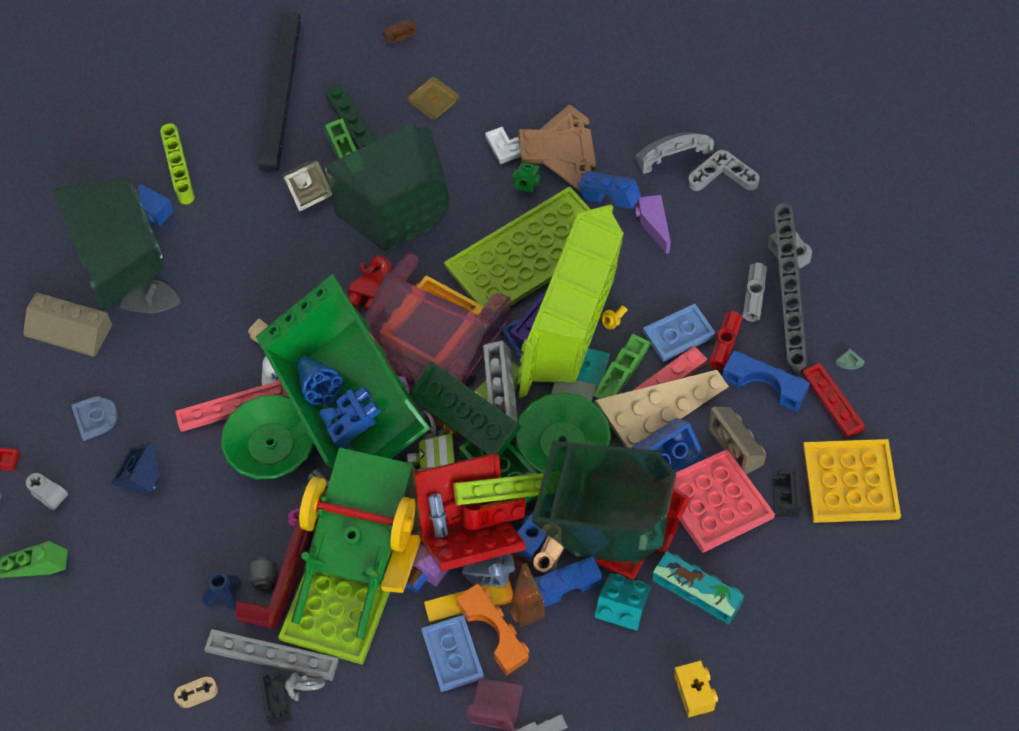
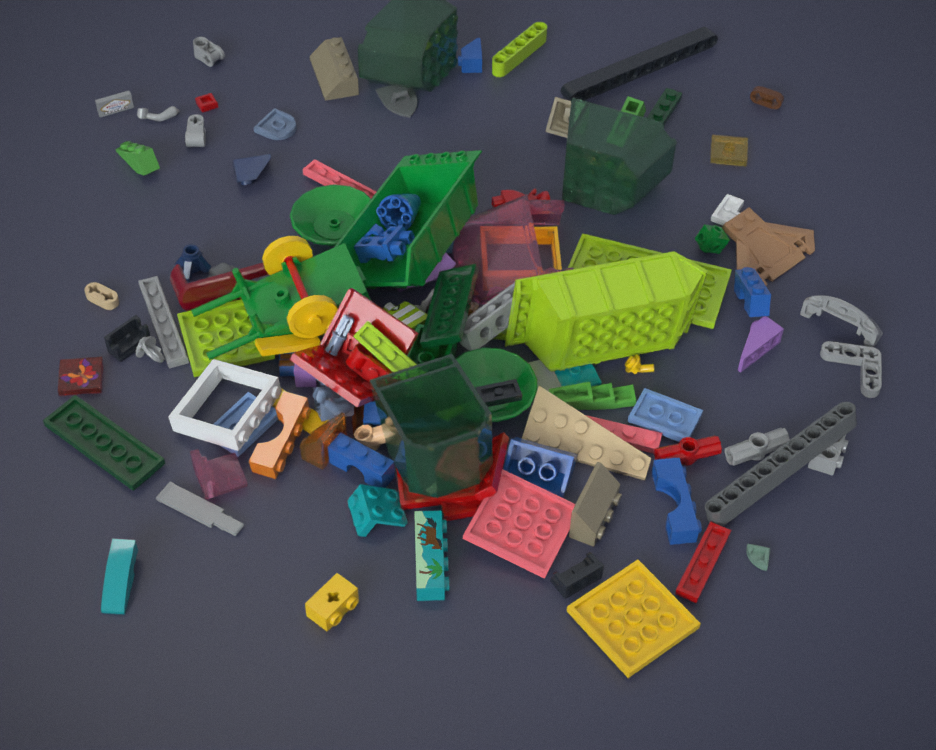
camera: 50 degrees right, 10 degrees down
(447, 688) = (182, 416): none -> white window
(586, 429) = (500, 393): none -> black plate

